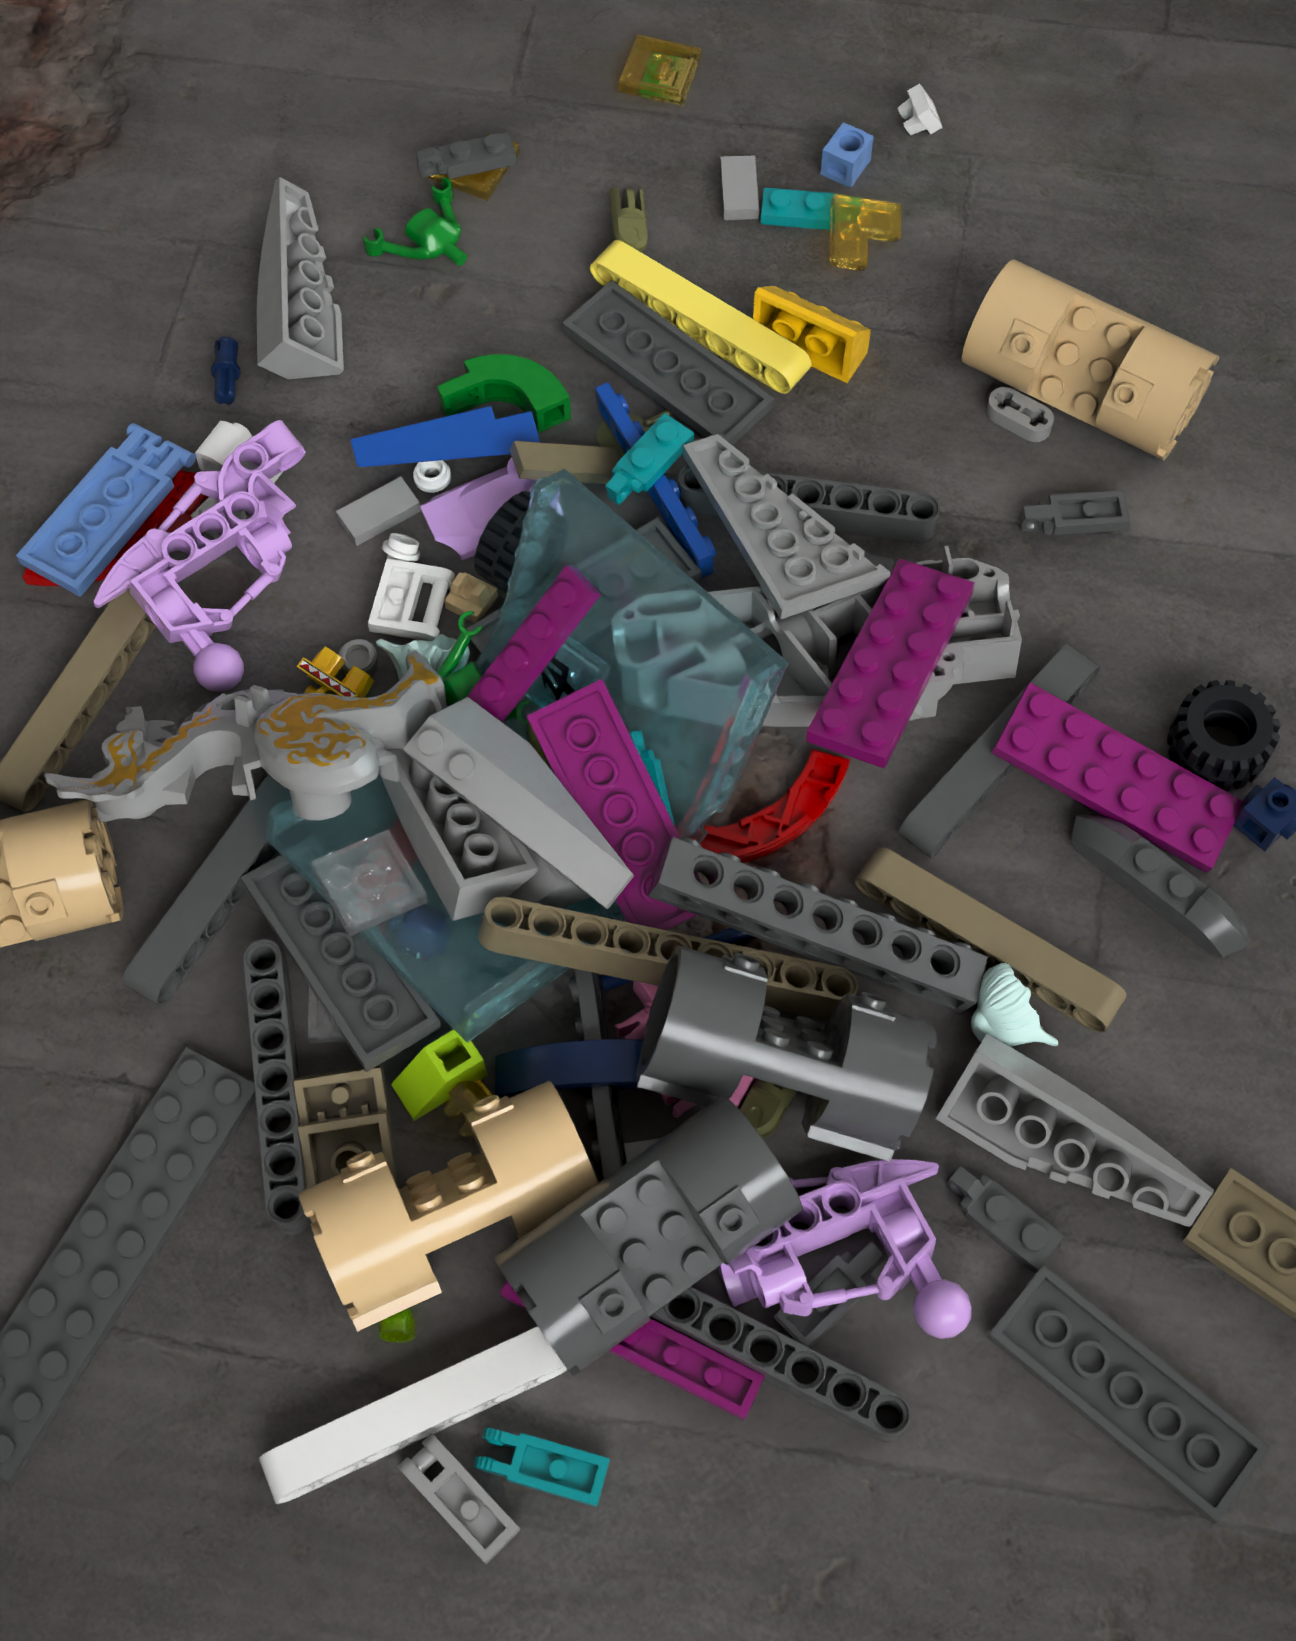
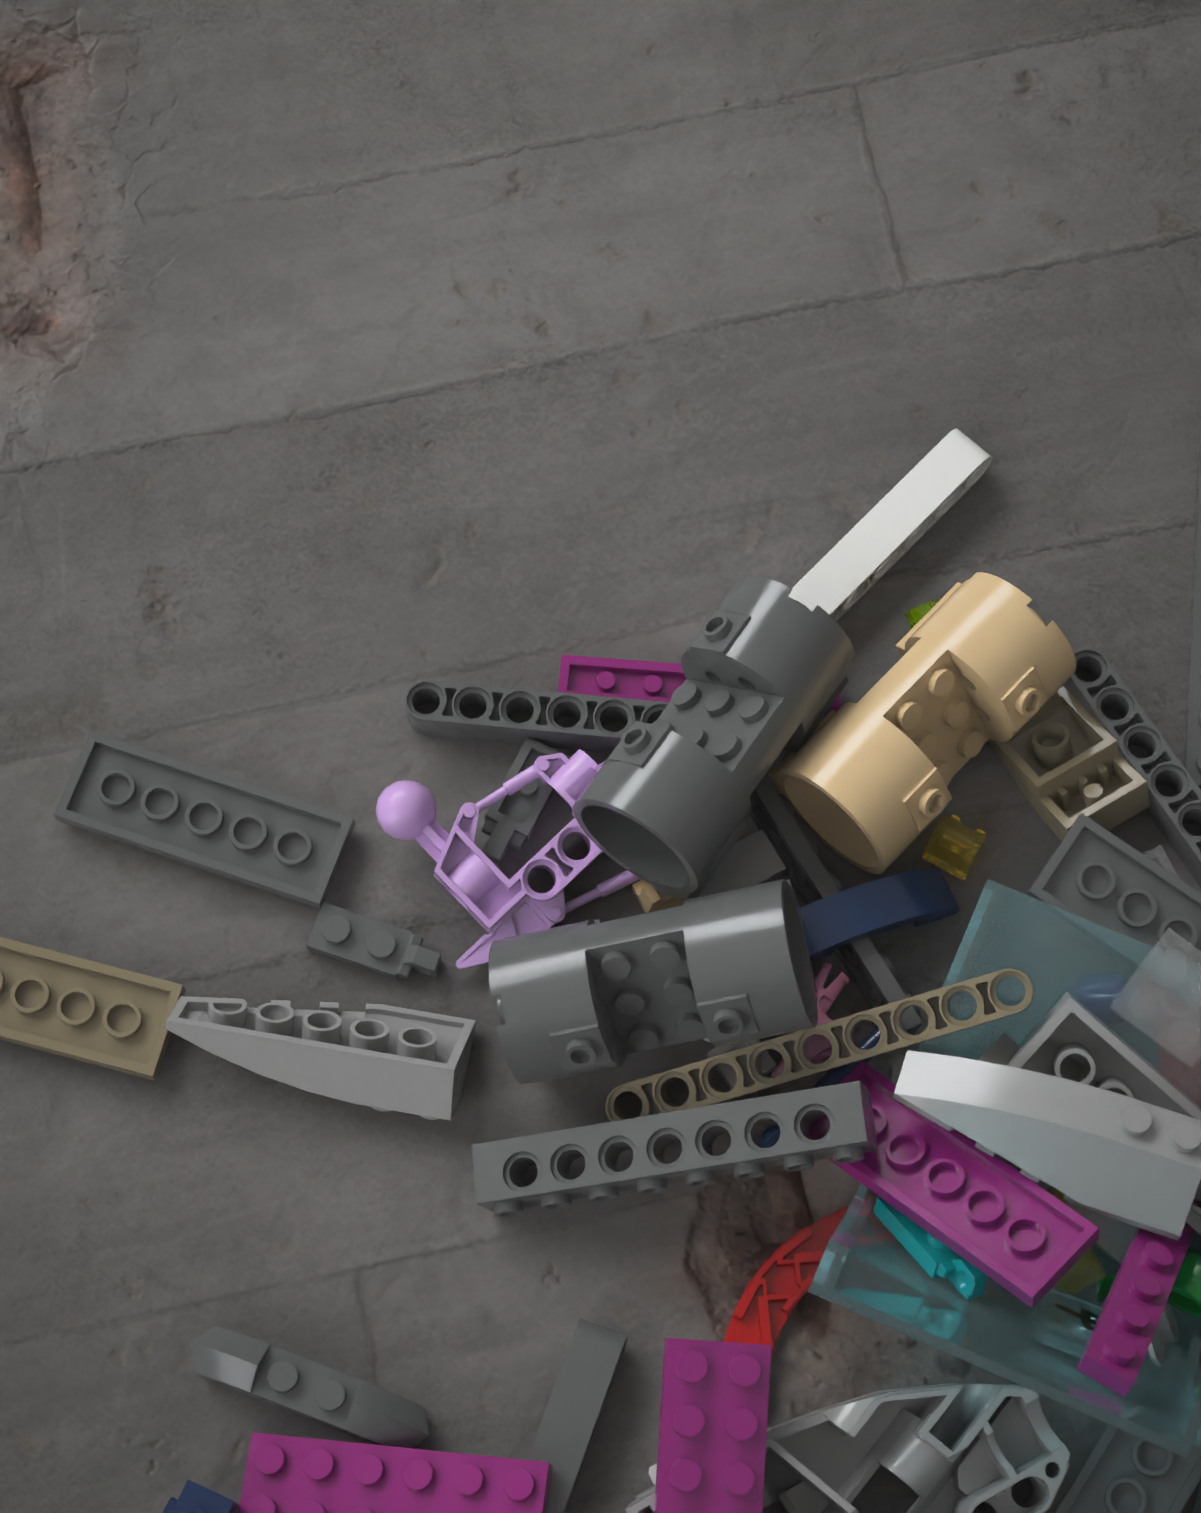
camera: 160 degrees right, 5 degrees up
(436, 1072) = (1005, 855): lime slope -> none
(460, 1500) = (795, 496): light grey plate -> none
(548, 1467) = (730, 551): teal hinge -> none
(956, 917) = (484, 1241): dark tan beam -> none
(1006, 1010) = (433, 1158): light aqua hair -> none

